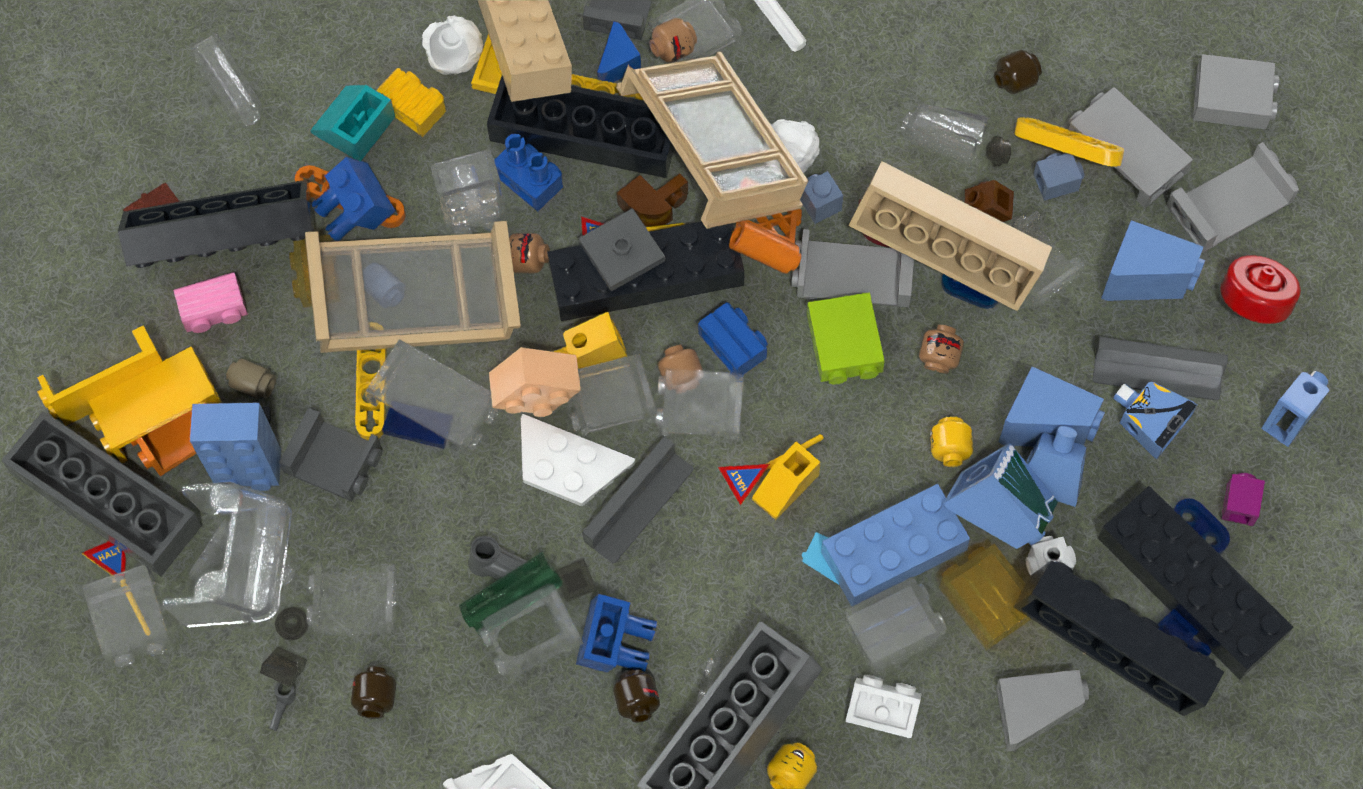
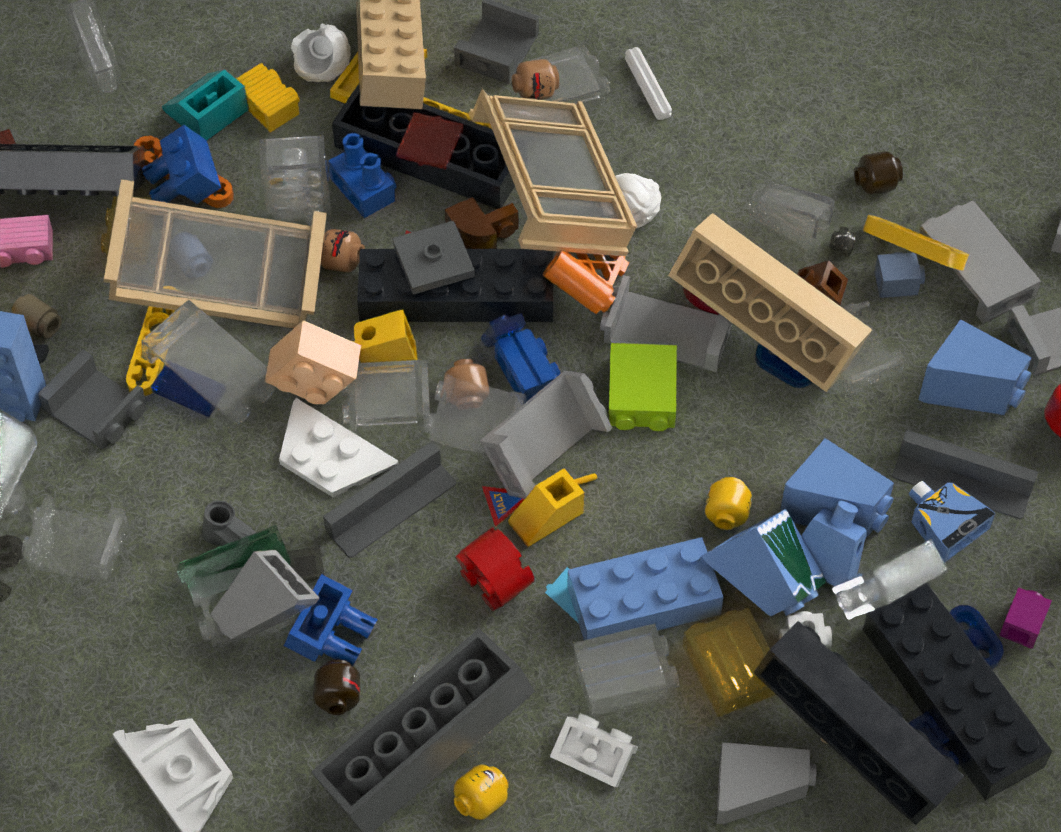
camera: 10 degrees right, 10 degrees down
(373, 693) = (68, 631): dark brown head -> none
(550, 627) = (262, 596): none -> light grey slope
(586, 125) = (430, 140): none -> clear red piece
(618, 55) = (481, 78): blue slope -> none
(703, 308) = (502, 328): none -> clear blue plate
(754, 550) = (495, 567): none -> red brick
(766, 404) = (544, 430): none -> light grey panel
(821, 197) = (650, 251): sand blue brick -> none
(941, 349) = (739, 414): medium nougat head -> none
(1117, 492) = (889, 579): none -> clear brick

